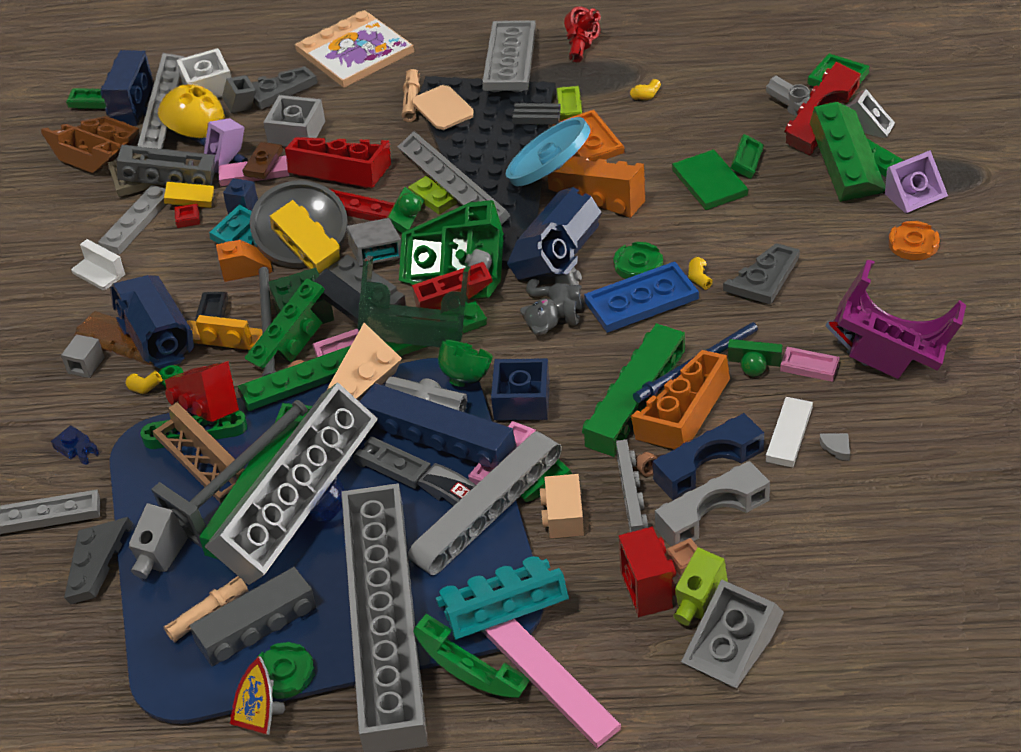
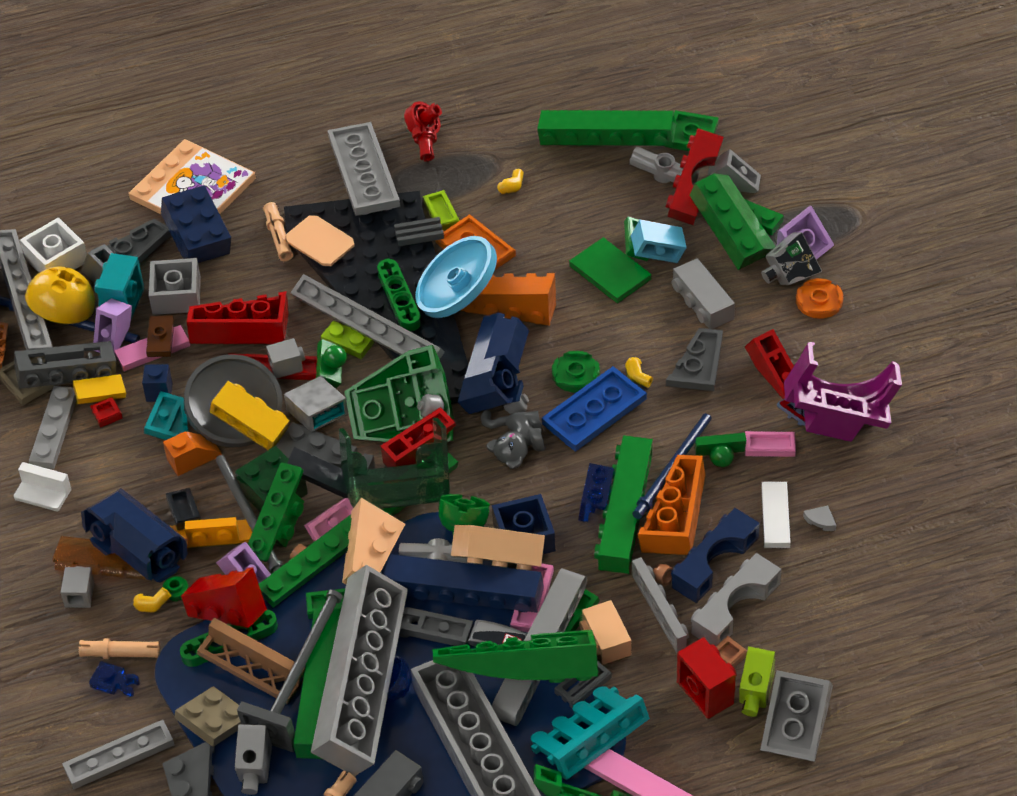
camera: 20 degrees left, 5 degrees up
(83, 416) = (118, 649): none -> light nougat pin
(132, 493) = (210, 716): none -> dark tan plate
(240, 365) = (242, 558): none -> lavender slope
(248, 107) = (121, 281): none -> teal brick
(336, 75) = (196, 224): none -> dark blue brick
(363, 196) = (285, 358): none -> light grey brick
(478, 510) = (542, 658): none -> green wedge
(480, 395) = (498, 546): none -> light nougat wedge
(494, 162) = (396, 295): none -> green beam
(519, 550) = (605, 675): none -> dark grey tile
(606, 369) = (595, 490): none -> clear blue bracket
(755, 56) = (606, 127): none -> green brick
(765, 159) = (658, 241): none -> medium azure brick
(793, 214) = (703, 294): none -> light grey brick
(835, 277) = (770, 359): none -> red slope
(893, 199) = (791, 261): none -> torso

